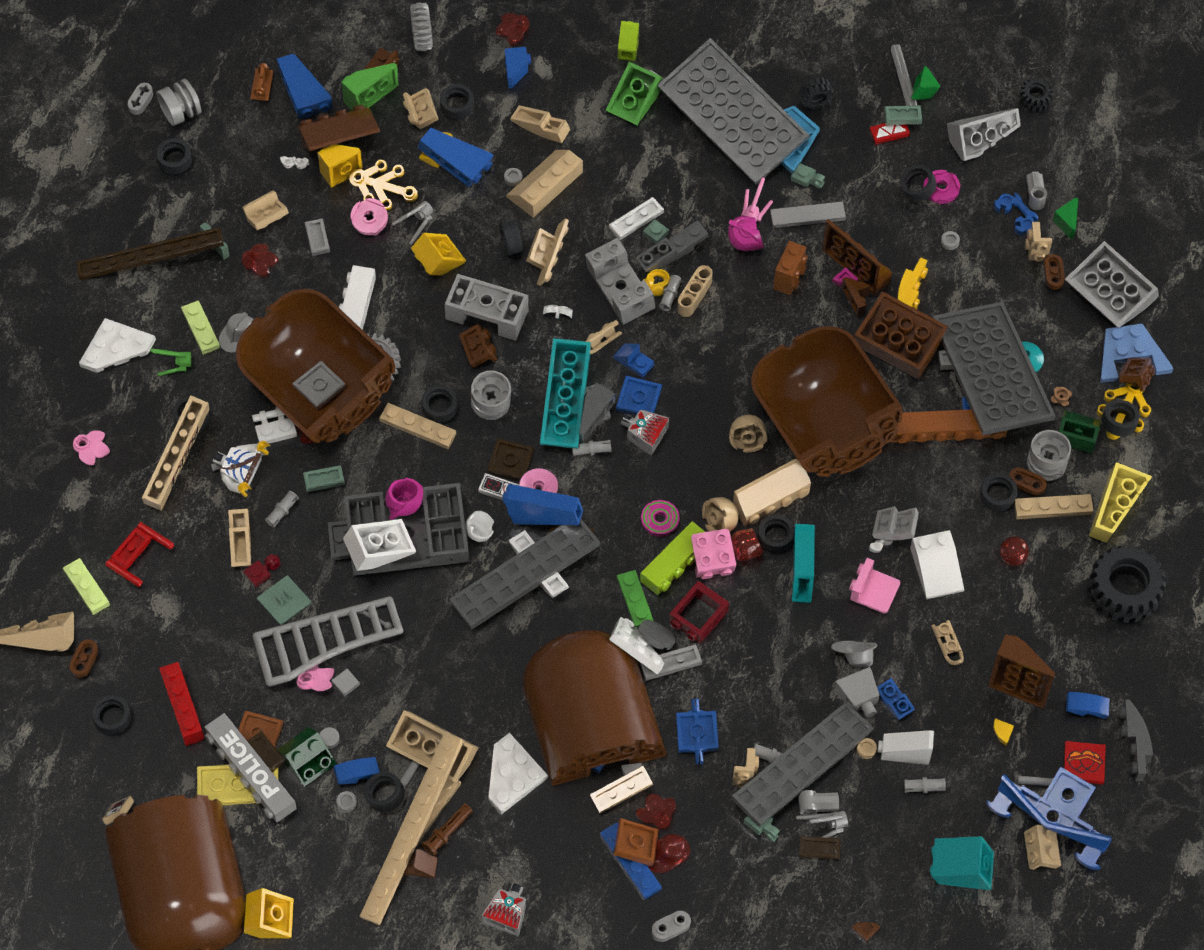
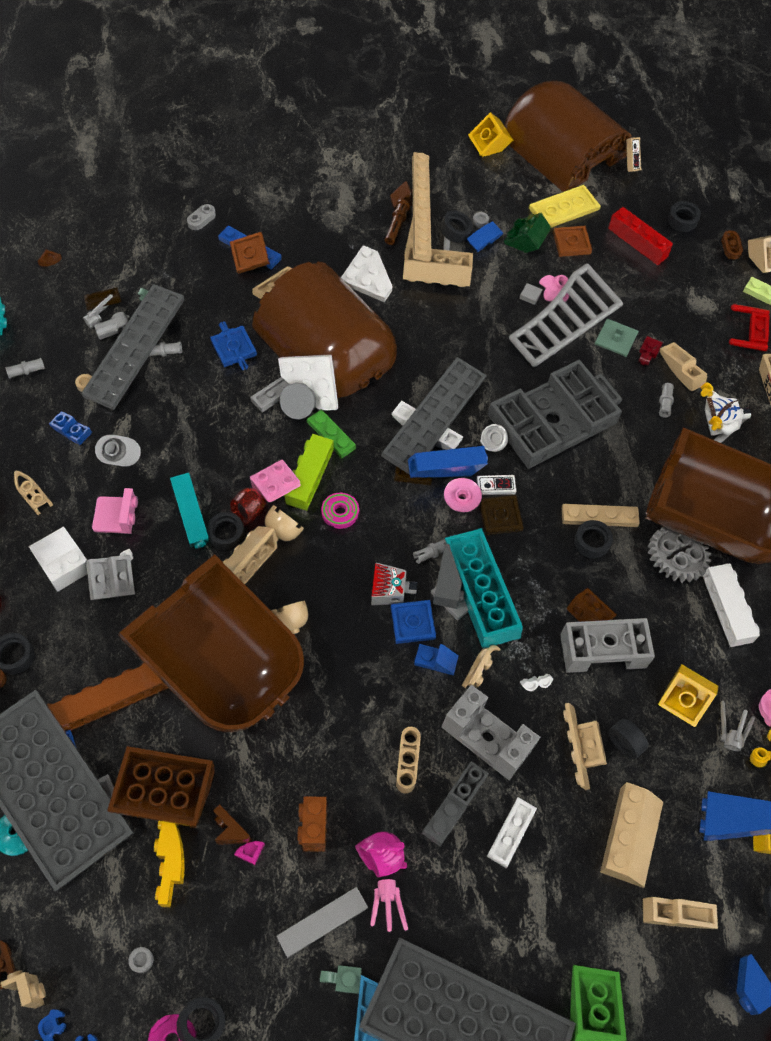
camera: 155 degrees right, 0 degrees up
(250, 768) = (562, 207): light grey brick -> none
(266, 751) = (560, 225): dark brown tile -> none
(319, 385) = (709, 509): light grey tile -> none
(324, 478) = (649, 437): sand green plate -> none
(330, 737) = (519, 254): light grey tile -> none
(378, 543) = (567, 374): white slope -> none
(403, 497) = (571, 424): dark pink helmet -> none
(490, 395) = (555, 547): light grey wheel -> none
(506, 910) = (326, 186): torso -> none
(513, 177) = (669, 828): light grey tile -> none
(655, 231) = (483, 823): sand green plate -> none
(657, 289) = (462, 752): yellow piece -> none
(657, 808) = (244, 284): clear red plate -> none
(669, 853) = (220, 262): clear red piece -> none
(670, 293) = (433, 749): light grey pin -> none
(711, 599) = (264, 451): dark red window -> none
(743, 775) = (179, 320): tan bracket -> none
(855, 258) = (241, 871): reddish brown slope -> none
(859, 691) = (103, 418): light grey torso -> none
(907, 747) = (45, 385): white slope -> none

